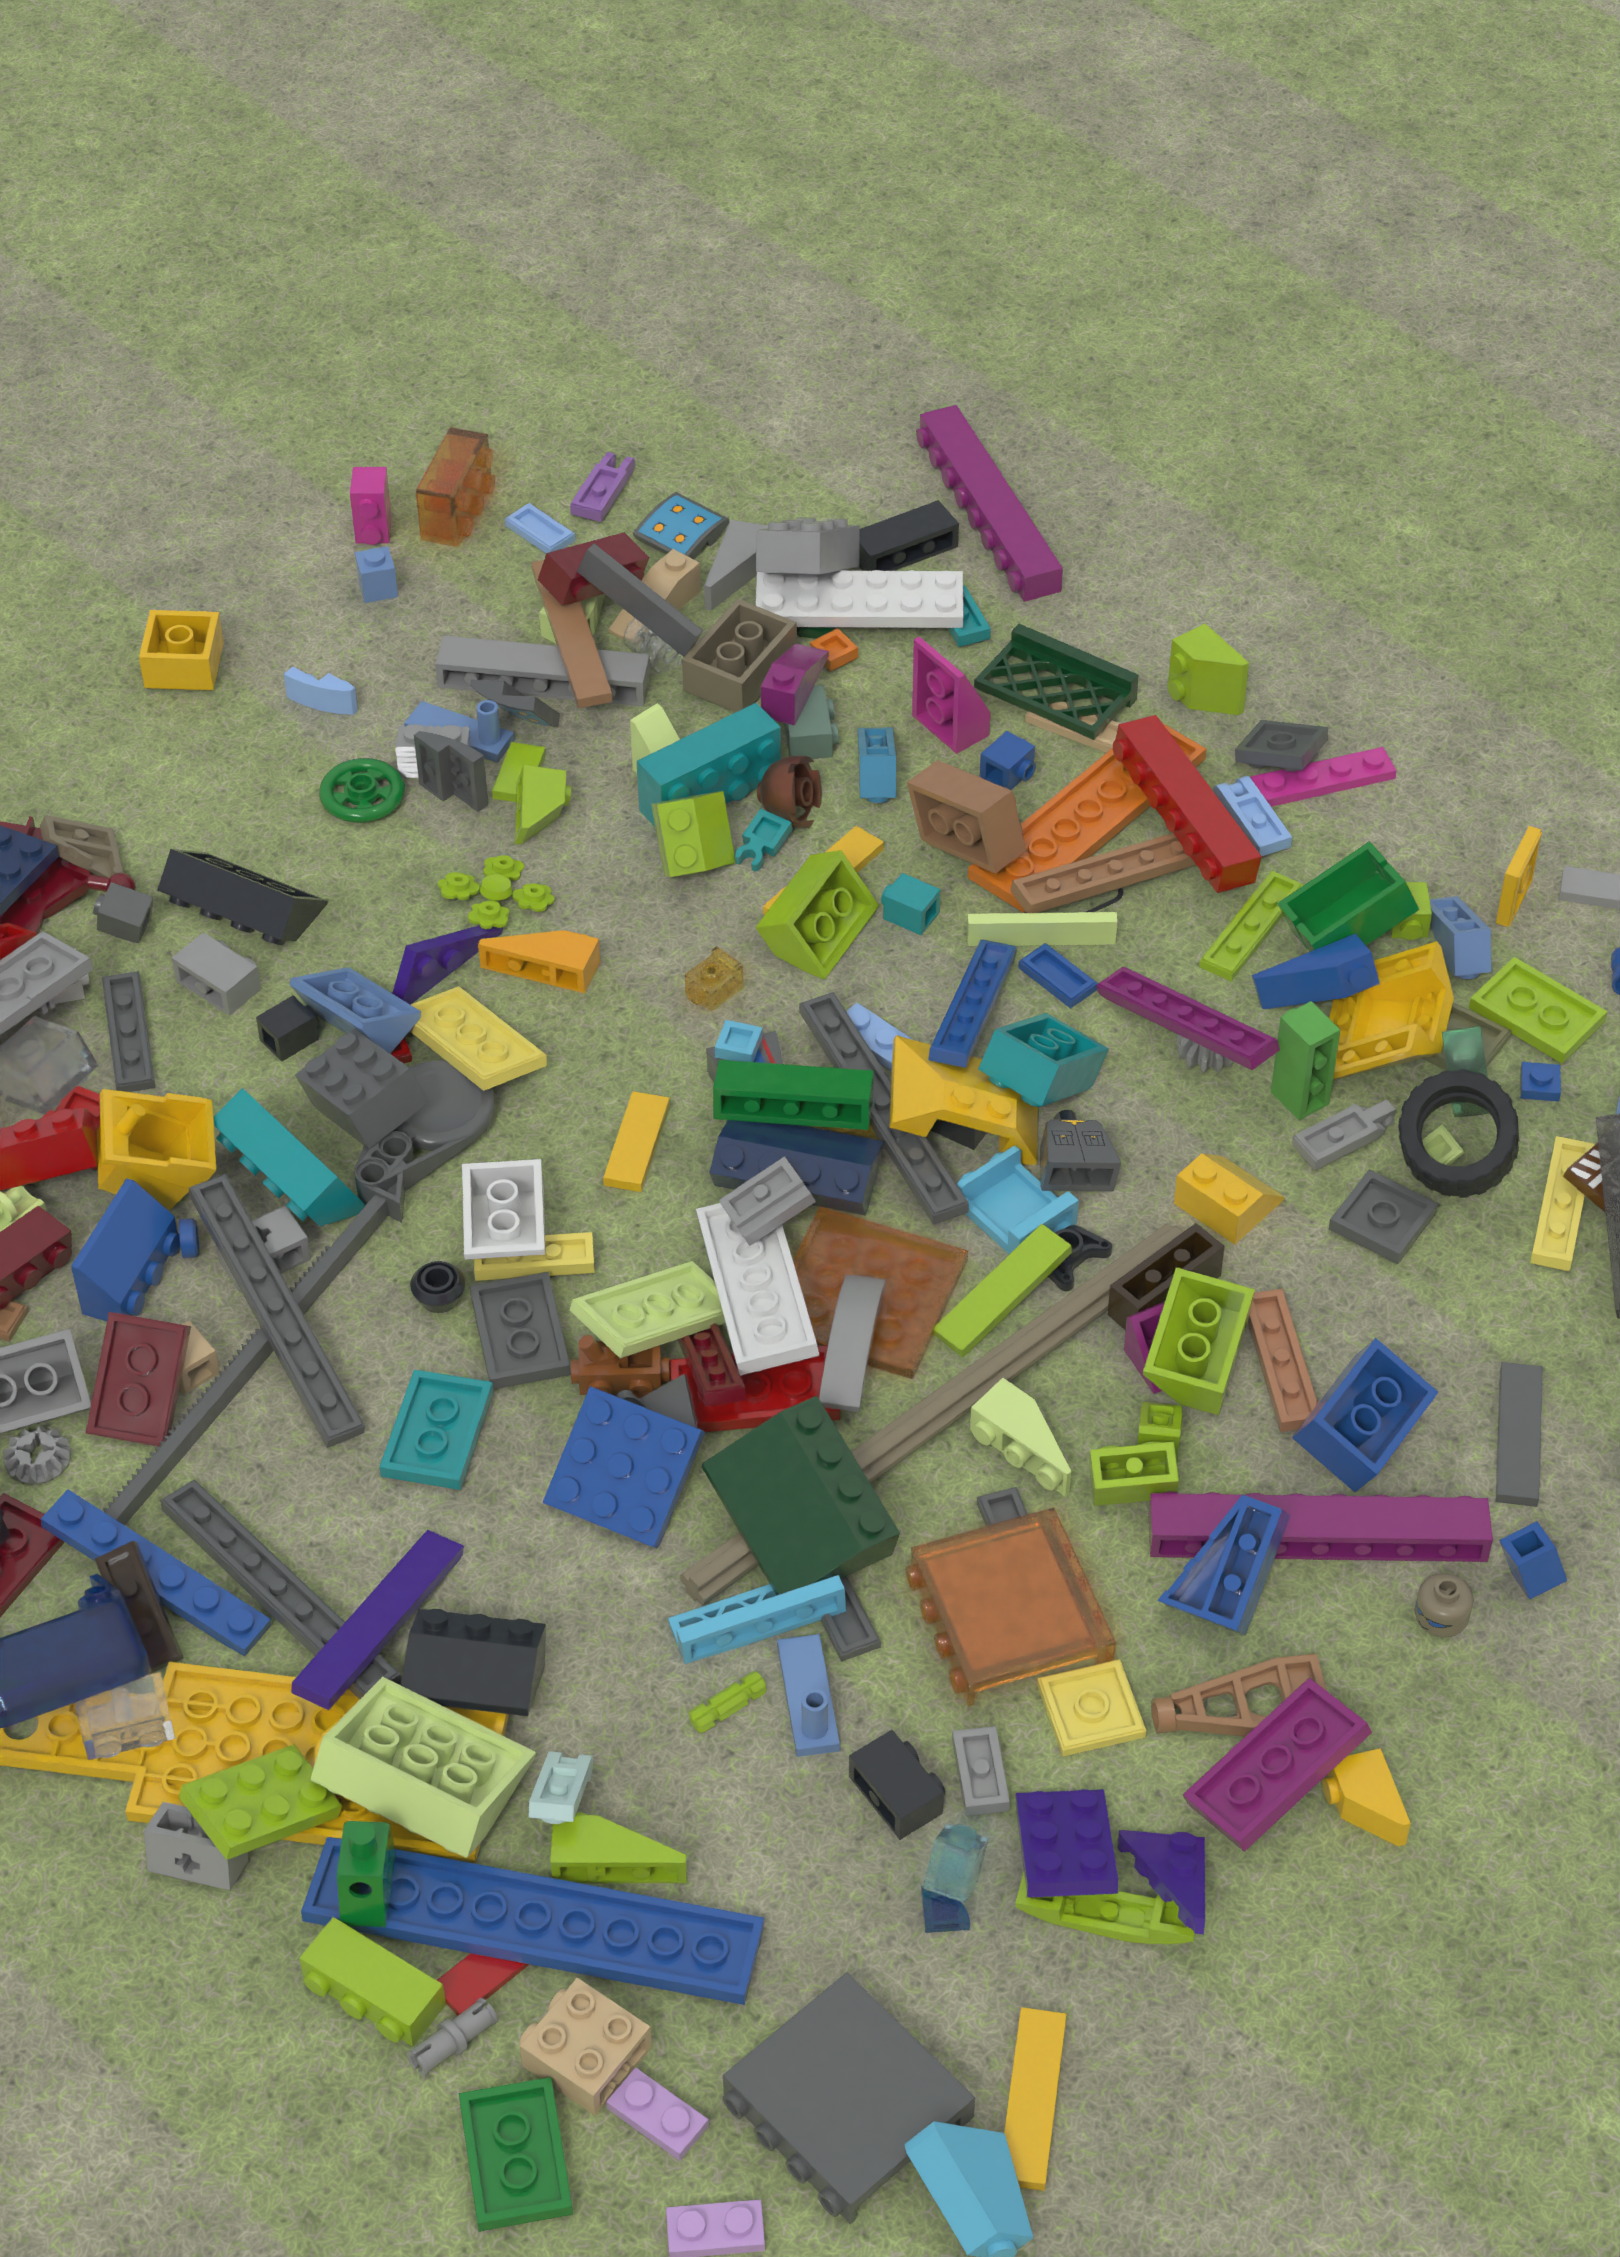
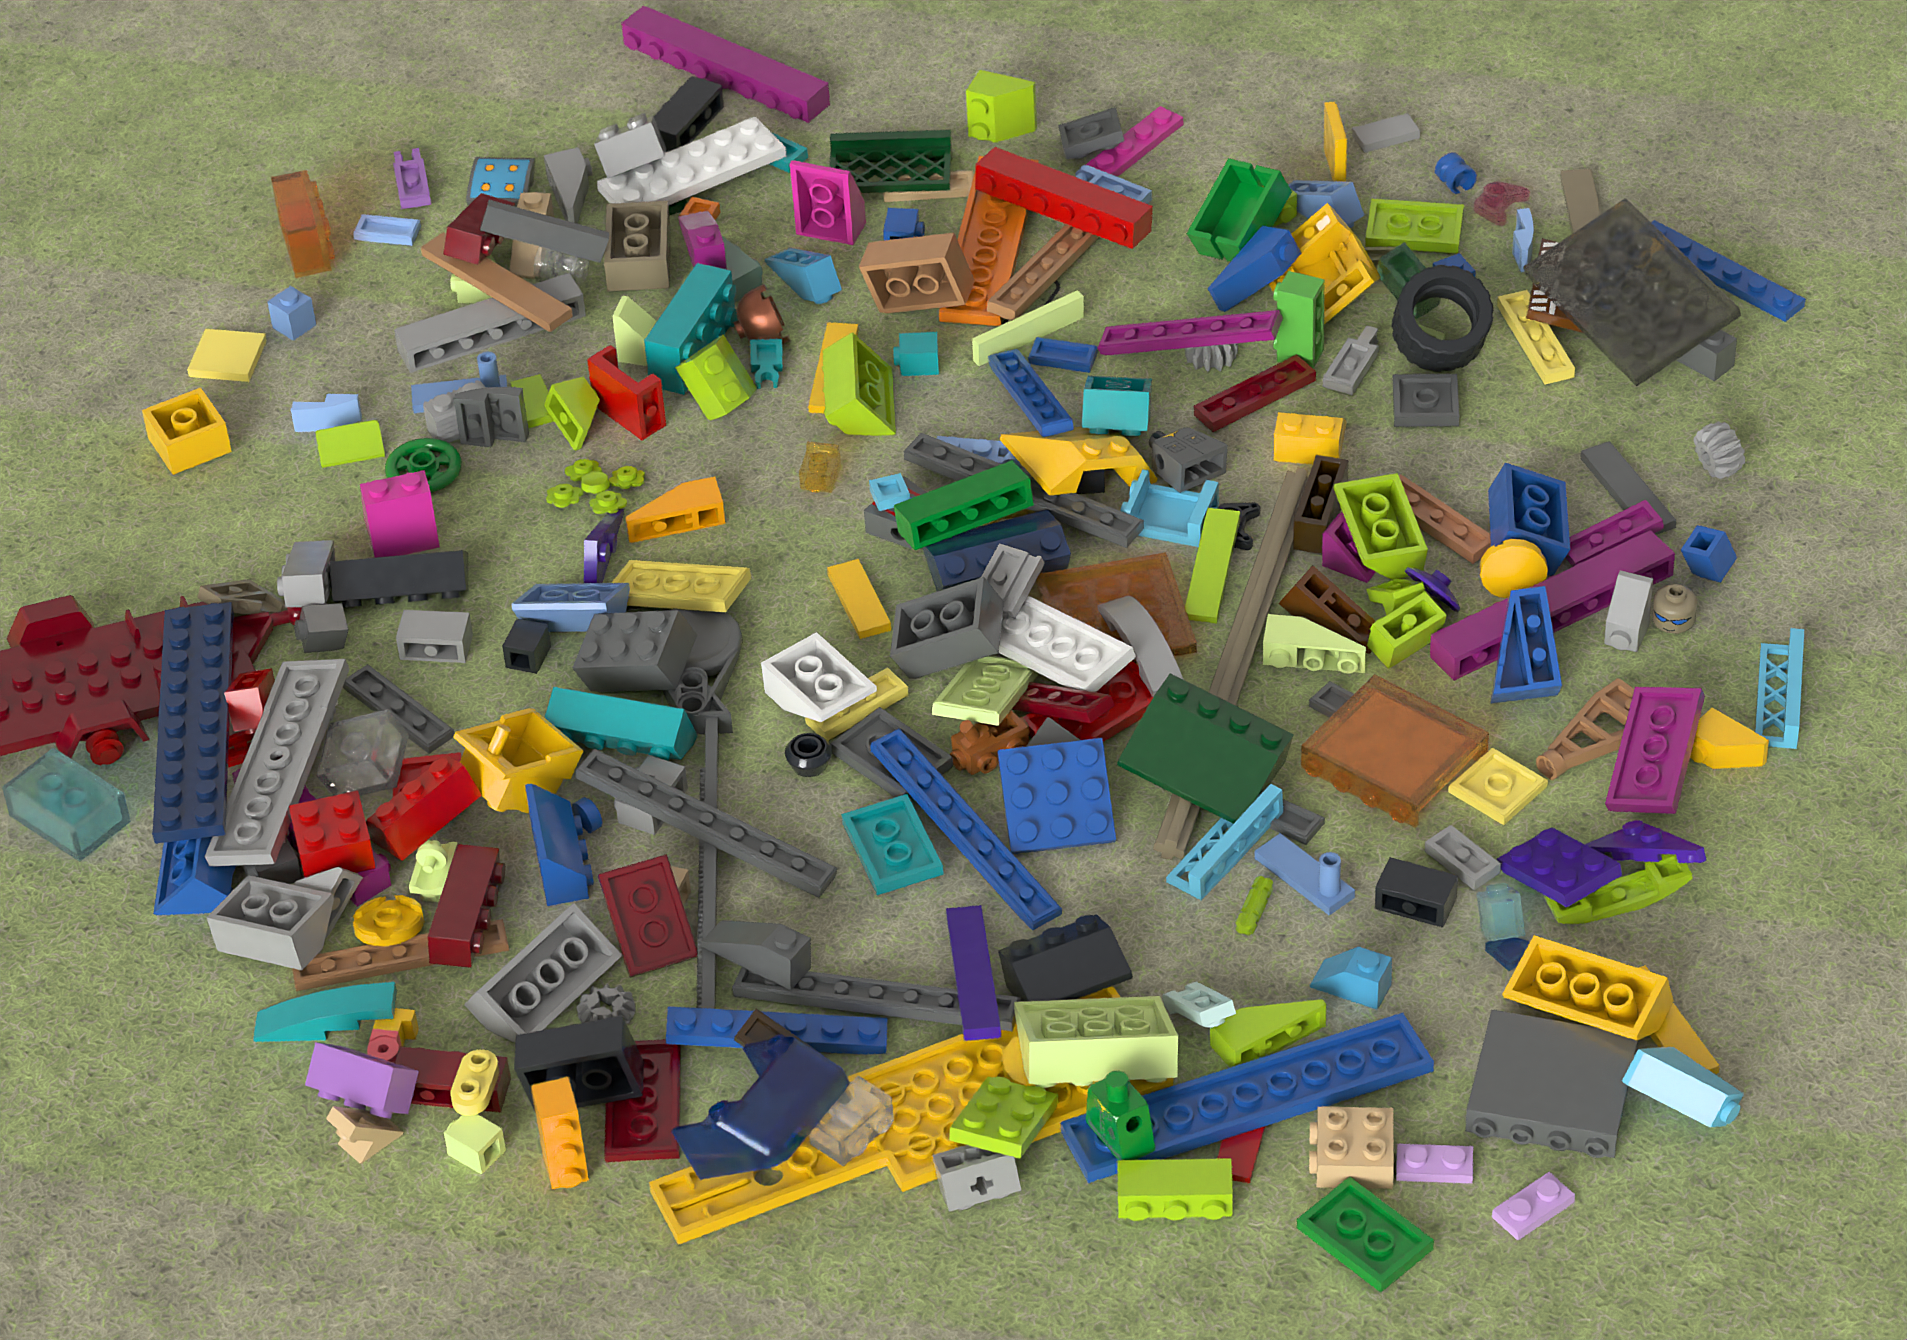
camera: 30 degrees left, 5 degrees down
(142, 853) = (307, 574): none -> light grey brick
(206, 1478) = (763, 948): none -> dark grey slope
(281, 832) = (399, 515): none -> dark pink slope
(292, 589) = (227, 355): none -> light yellow tile
(317, 734) = (349, 443): none -> lime slope
(370, 505) = (245, 264): dark pink brick -> none
(452, 2036) = (1258, 1192): light grey pin -> none
(515, 1454) = (966, 829): none -> blue tile
(516, 703) = (507, 351): dark grey slope -> none
(592, 811) = (626, 401): none -> red panel
(669, 1222) = (947, 628): none -> dark grey brick
(754, 1848) = (1356, 976): none -> dark azure slope
(961, 2016) = (1590, 989): none -> yellow slope
(1076, 1404) = (1326, 605): none -> reddish brown slope
(1200, 1440) = (1436, 585): none -> dark purple dish
(1212, 1117) = (1254, 393): none -> dark red plate
(1248, 927) = (1170, 262): lime tile -> none
(1301, 1463) = (1512, 567): none -> yellow tile
(1384, 1584) = (1629, 612): none -> slope
(1449, 1478) = (1613, 532): none -> magenta plate
(1493, 1777) = (1792, 689): none -> medium azure fence

